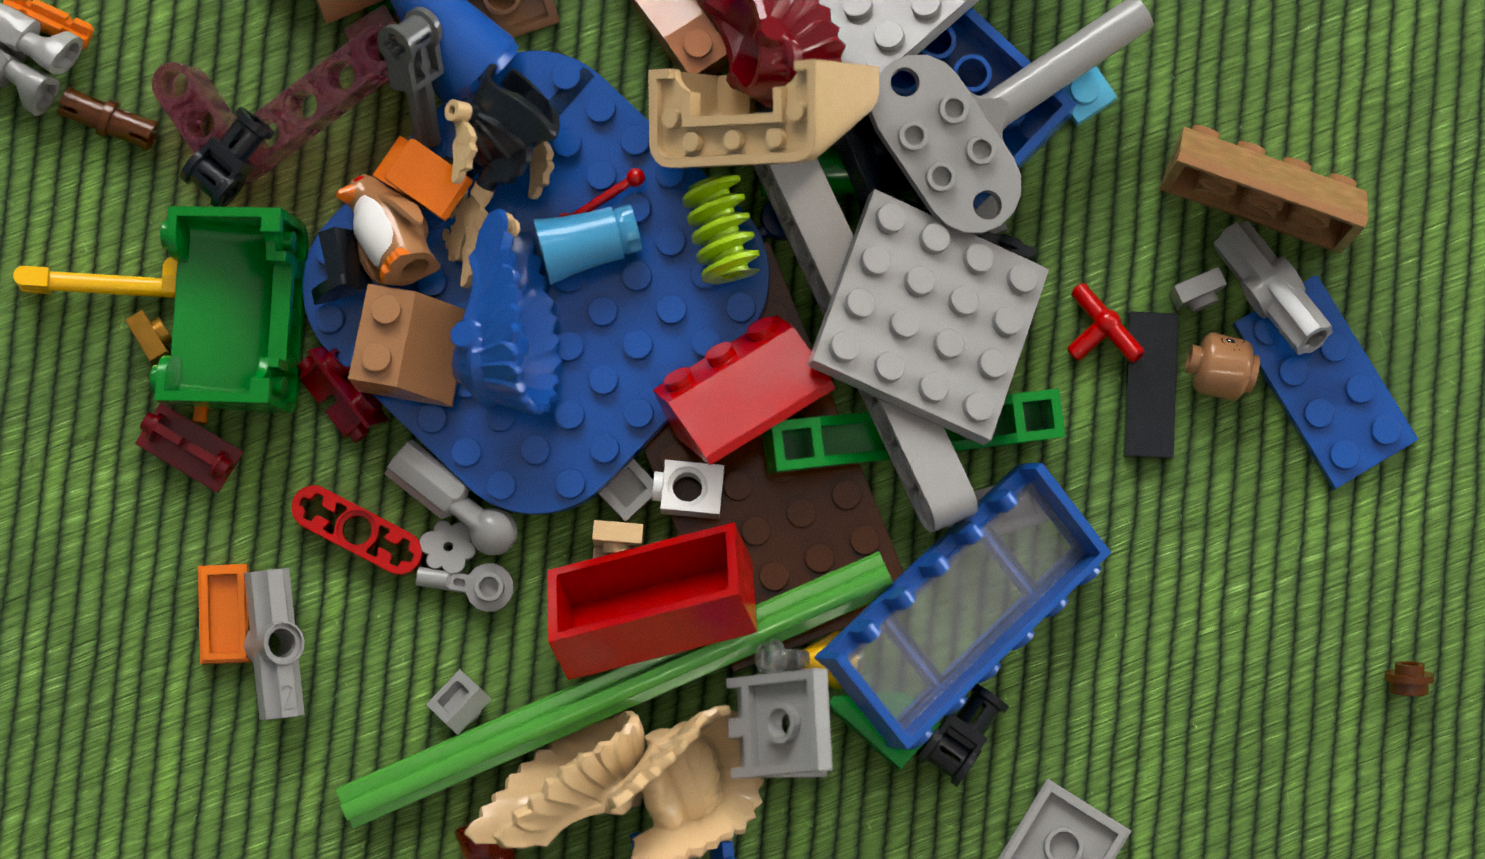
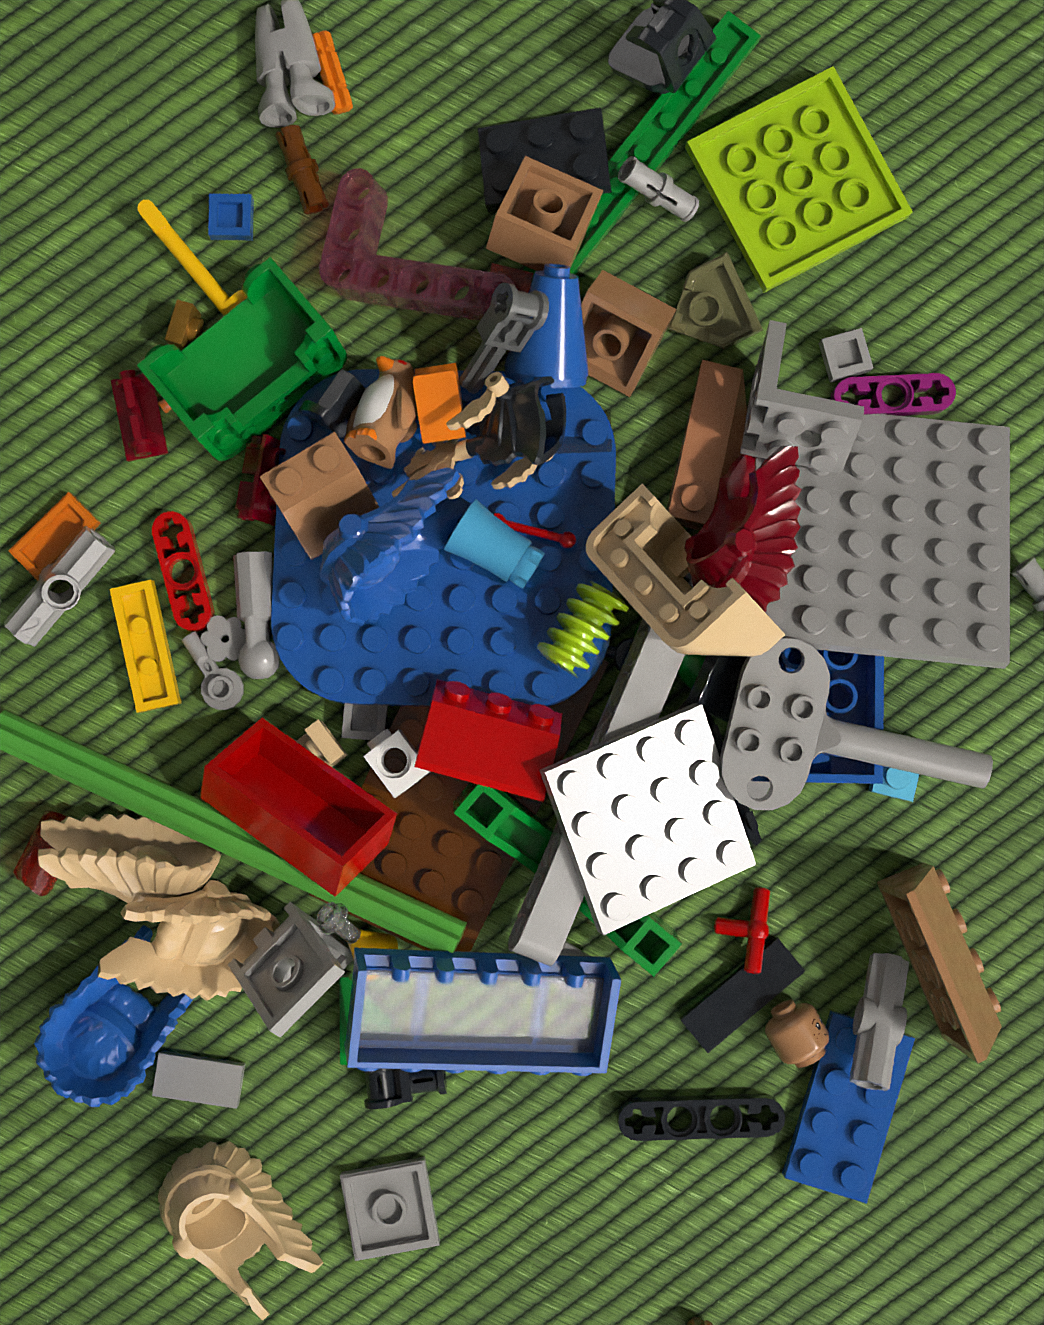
camera: 50 degrees right, 5 degrees up
(92, 214) = (231, 217): none -> blue plate
(224, 162) = (332, 266): black connector -> none
(392, 619) = (145, 646): none -> yellow plate
(459, 702) = (129, 737): light grey plate -> none
(1198, 291) = (832, 972): light grey plate -> none
(1227, 517) = (700, 1124): none -> black beam

